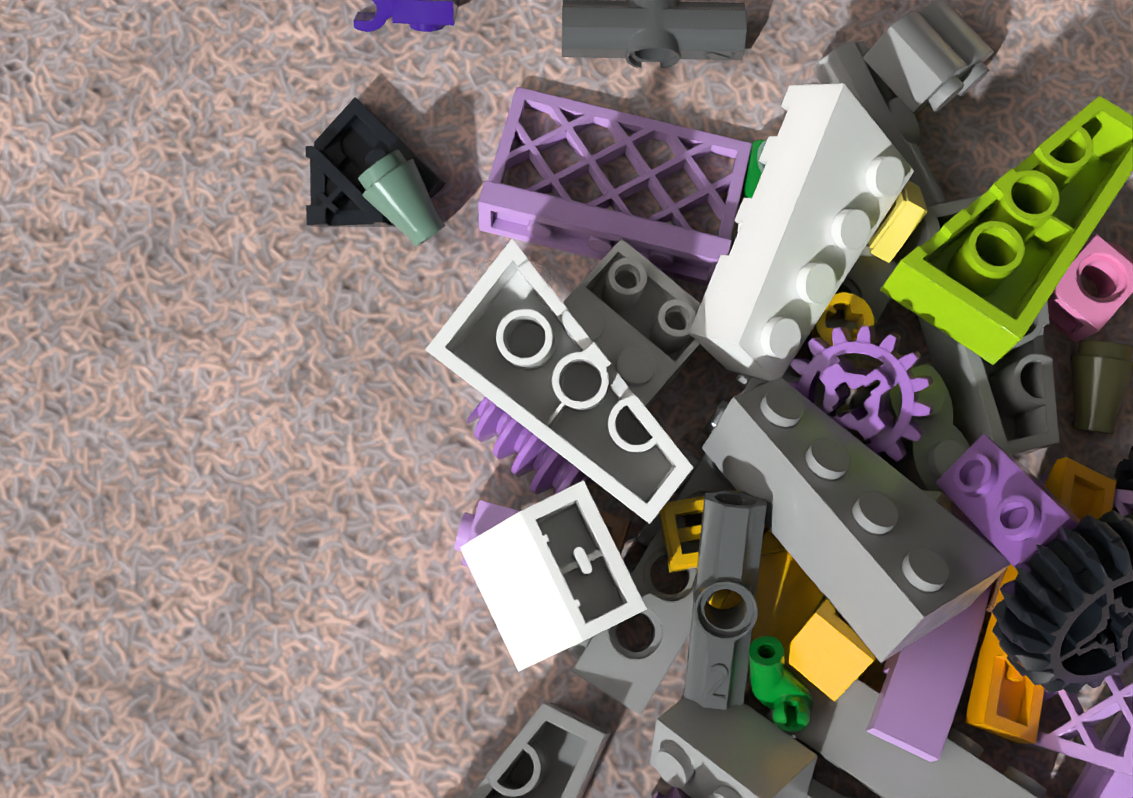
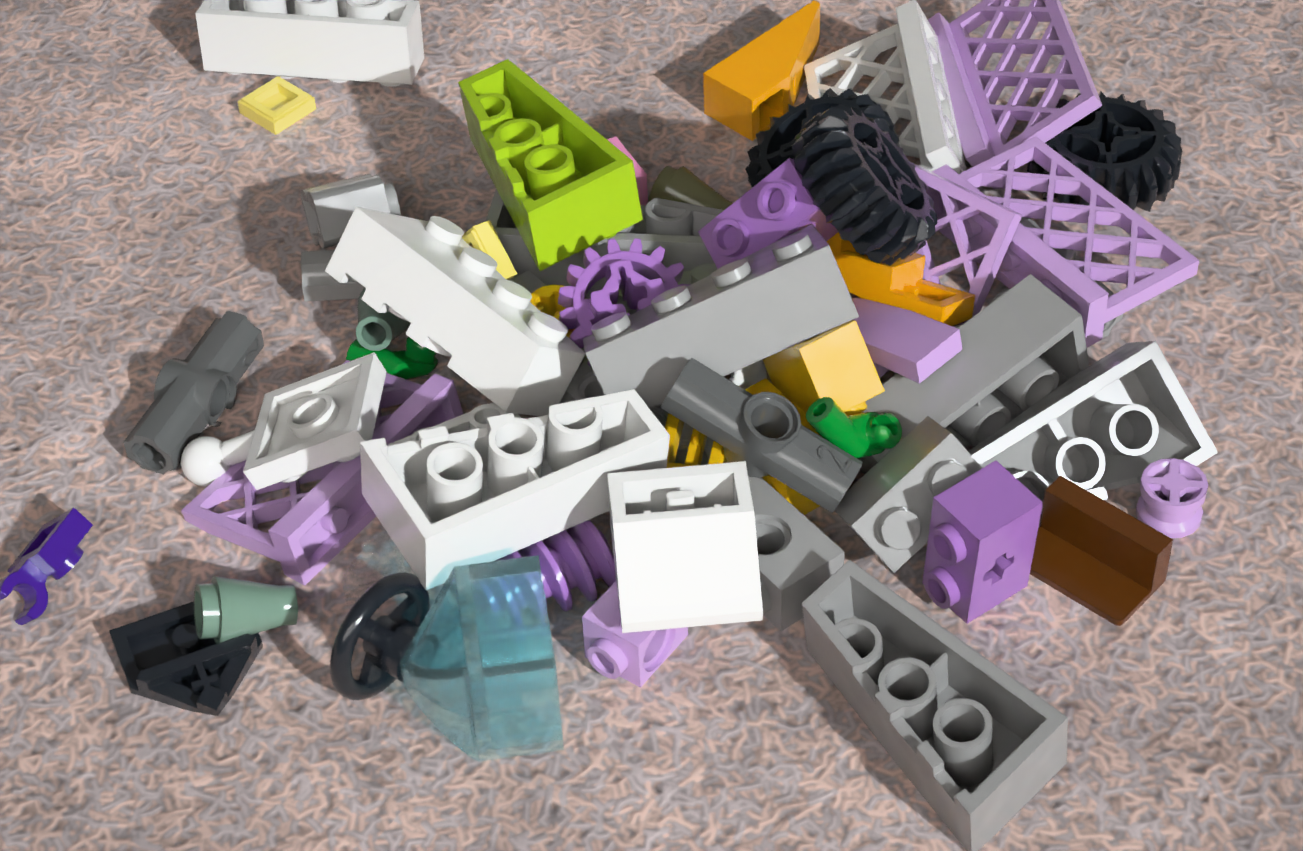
camera: 65 degrees left, 35 degrees down
(393, 430) = (469, 662): none -> clear light blue piece
(640, 131) = (297, 428): none -> white plate

